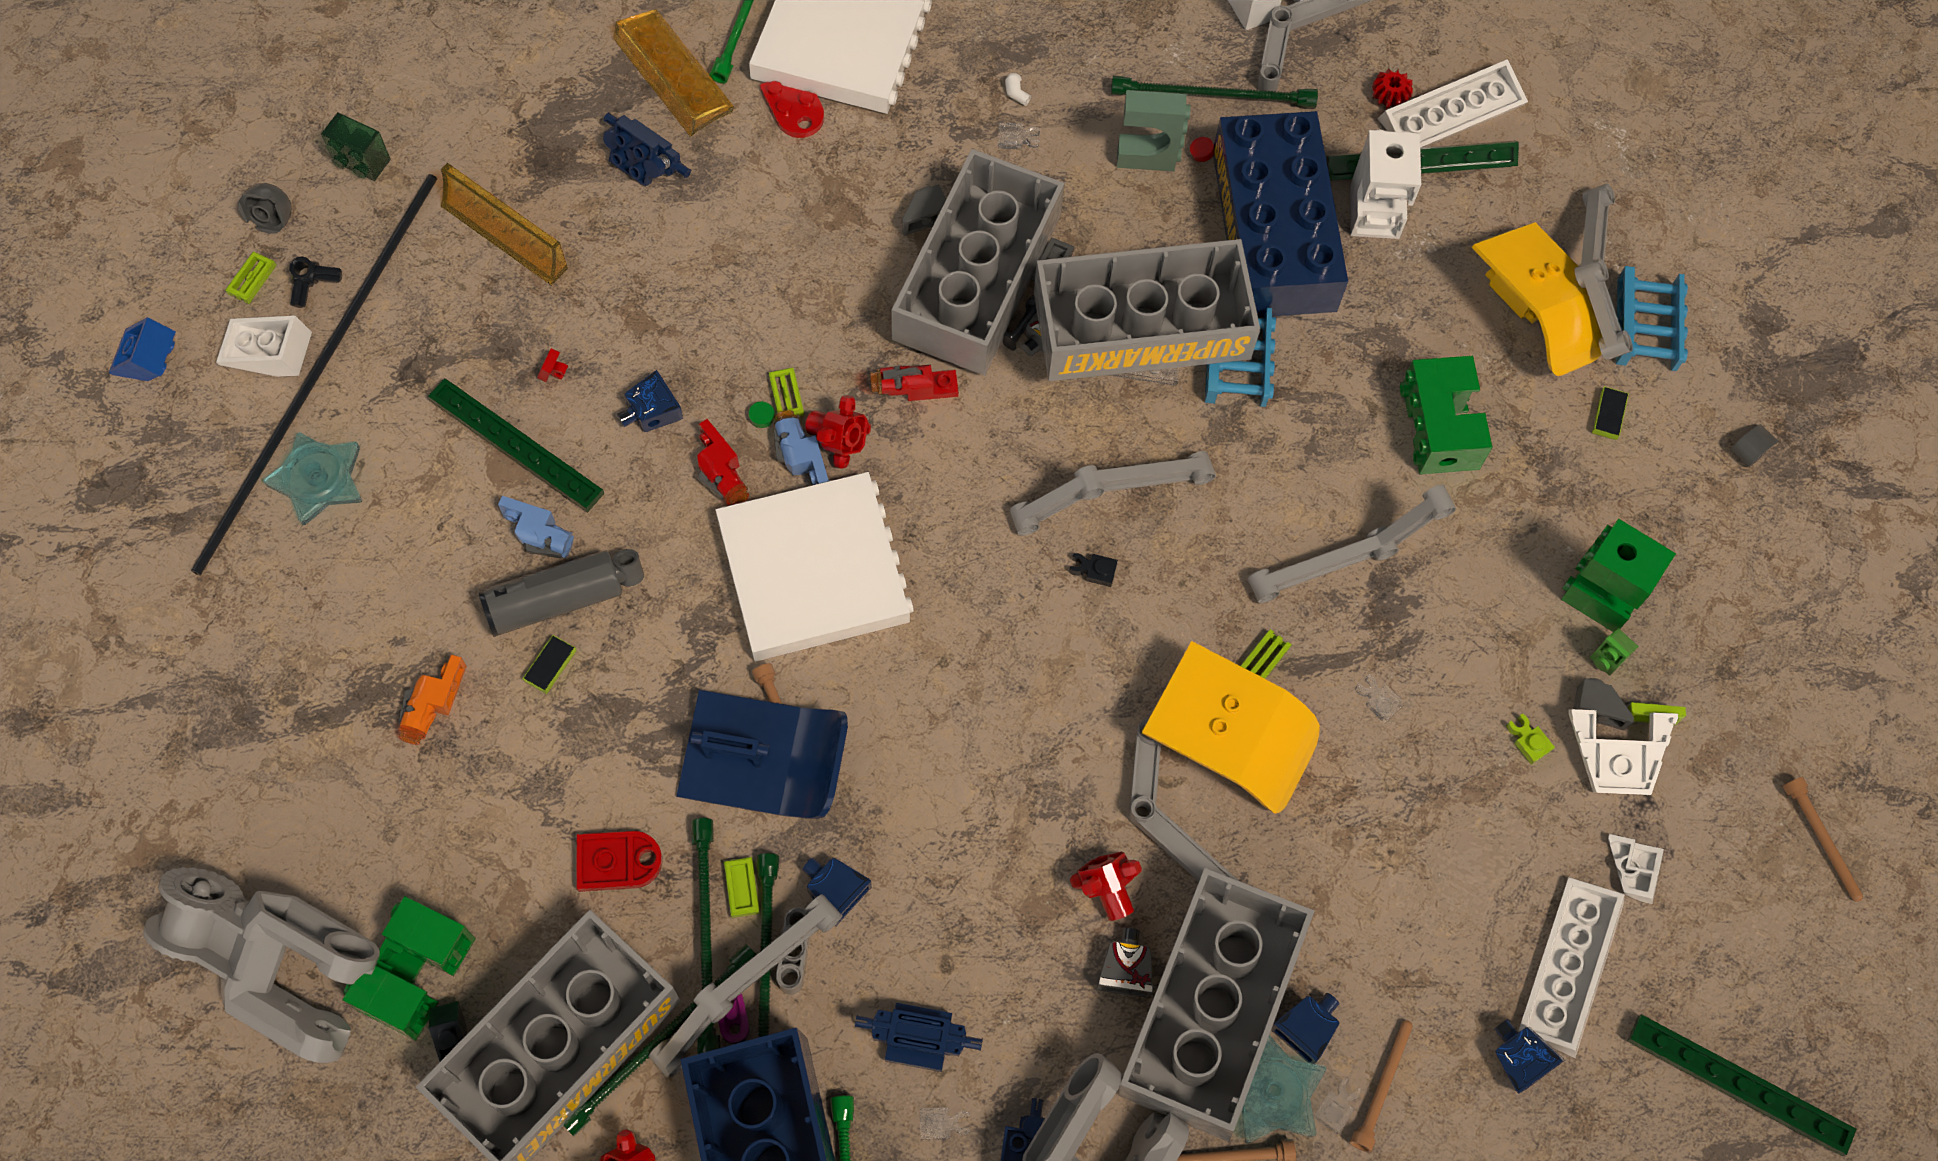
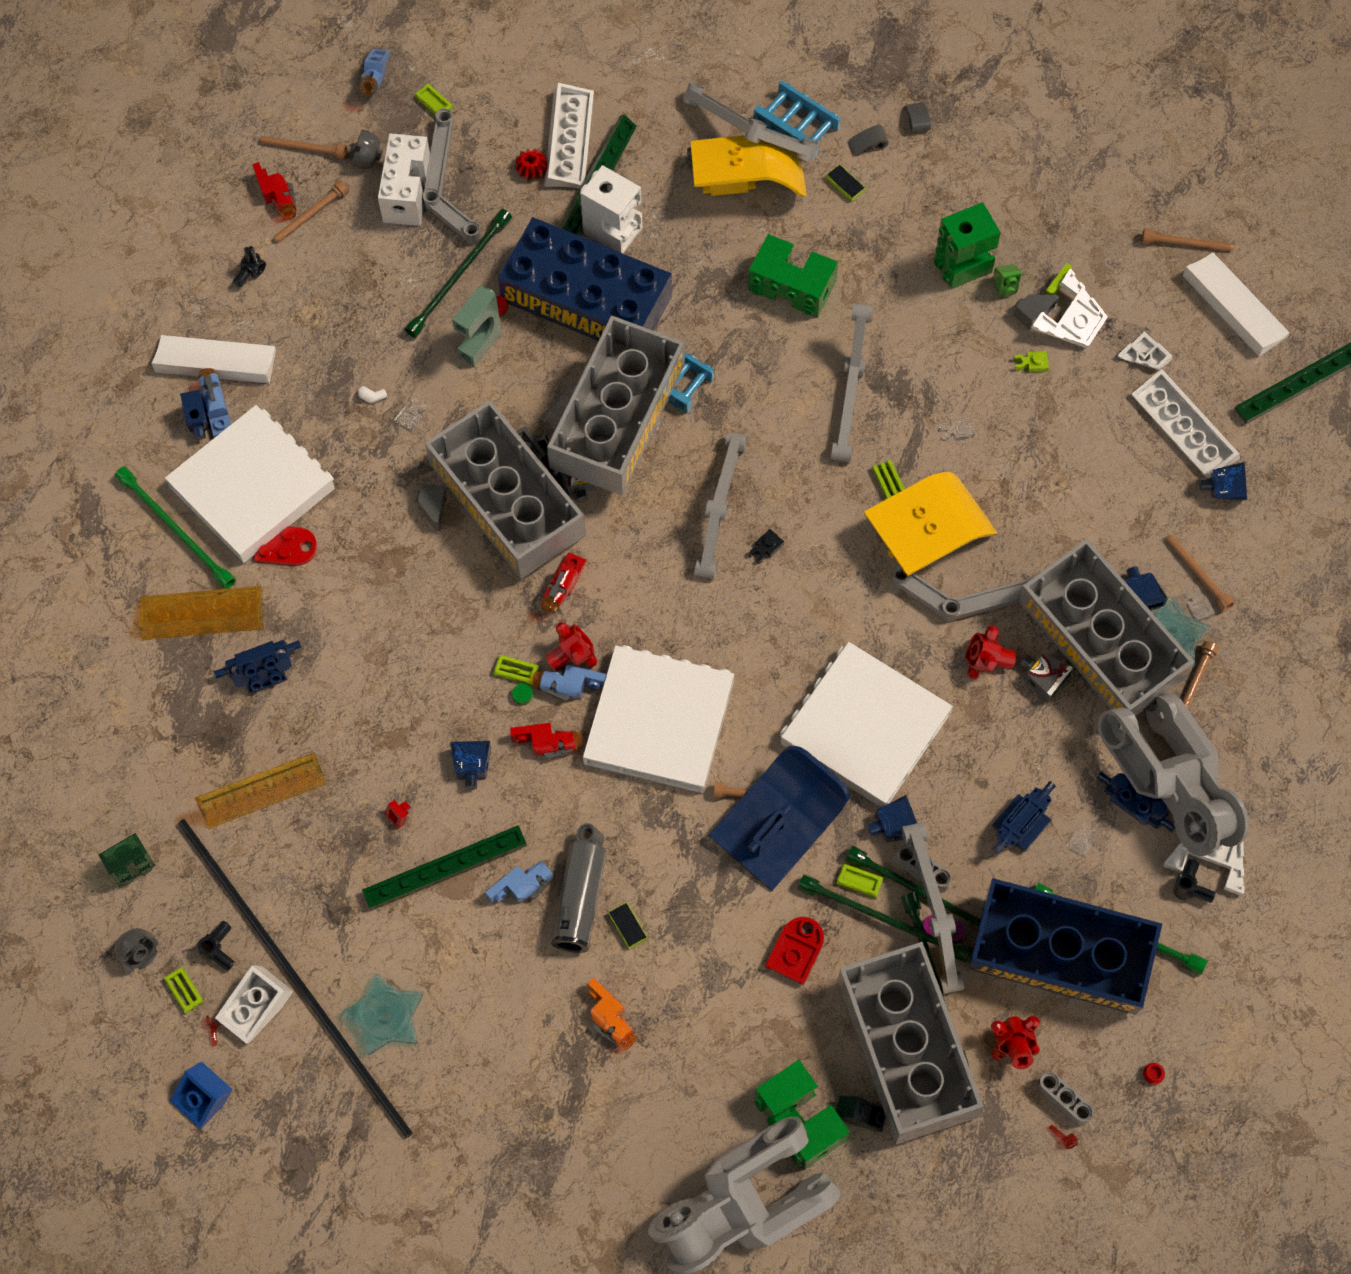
camera: 55 degrees left, 0 degrees up
(221, 327) = (213, 1029): none -> clear red hand
(937, 792) = (867, 724): none -> white brick
(1689, 409) = (870, 137): none -> dark grey panel
(1783, 943) = (1235, 304): none -> white arch

